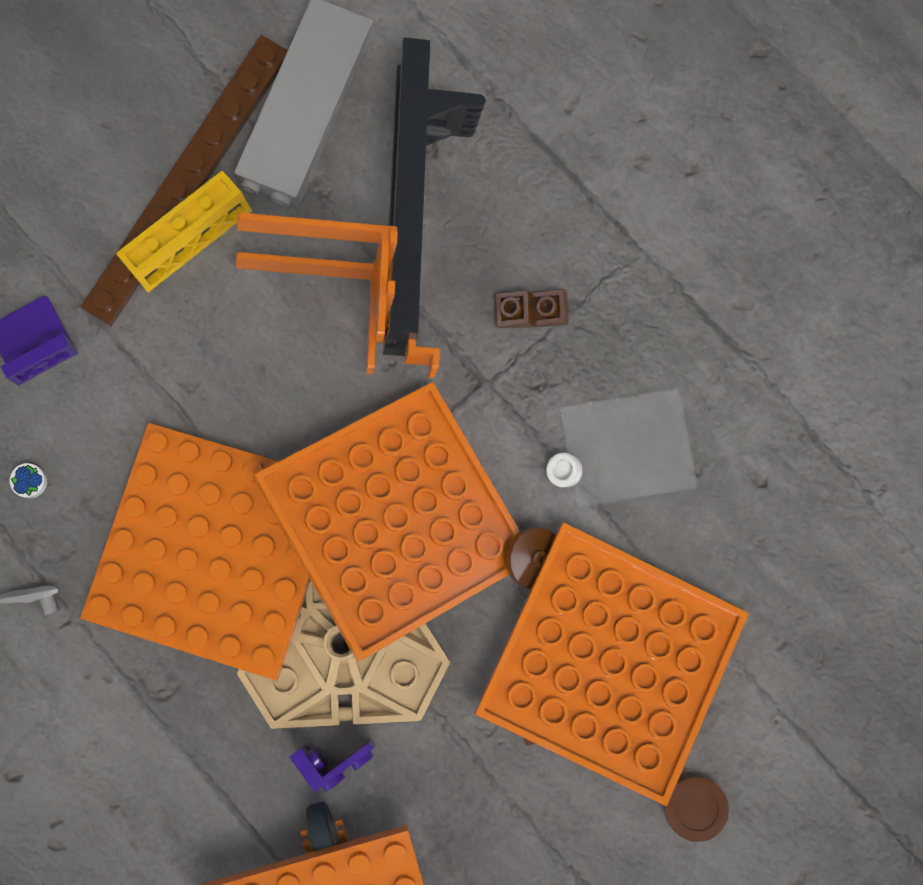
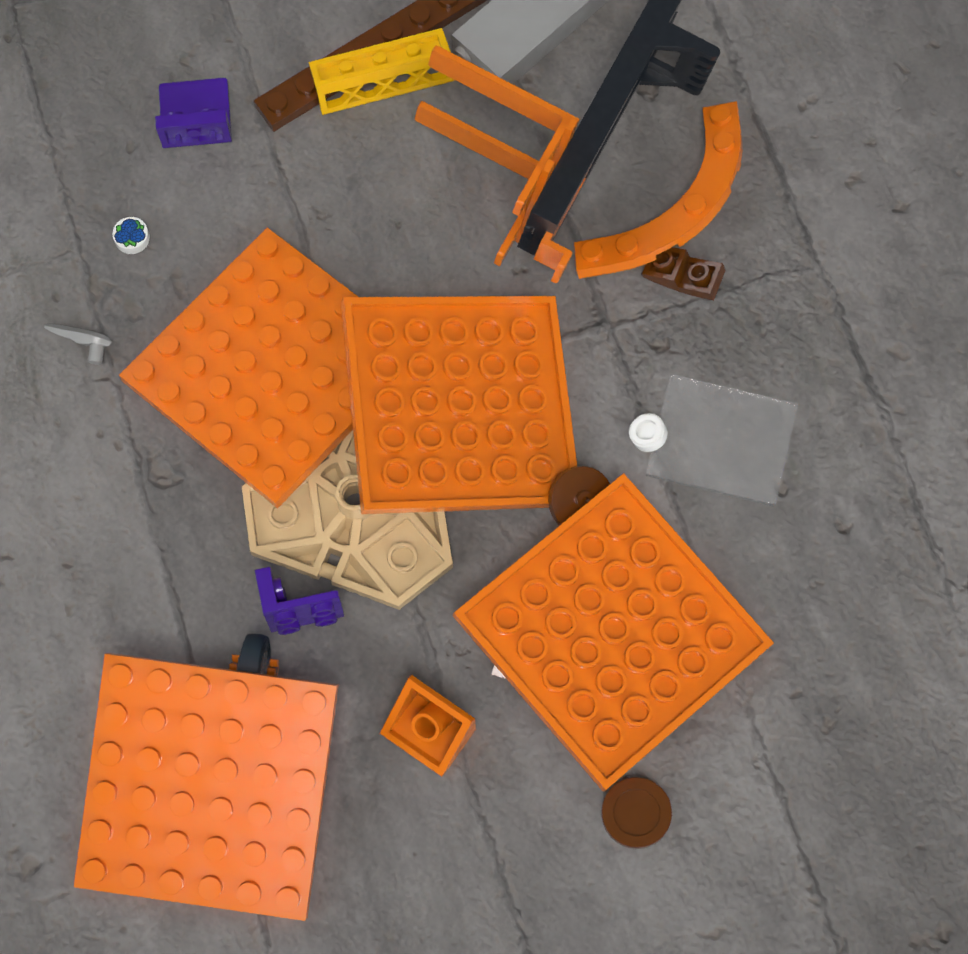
camera: 30 degrees right, 10 degrees down
(493, 814) = (428, 726): none -> orange slope
(517, 255) = (686, 216): none -> orange plate

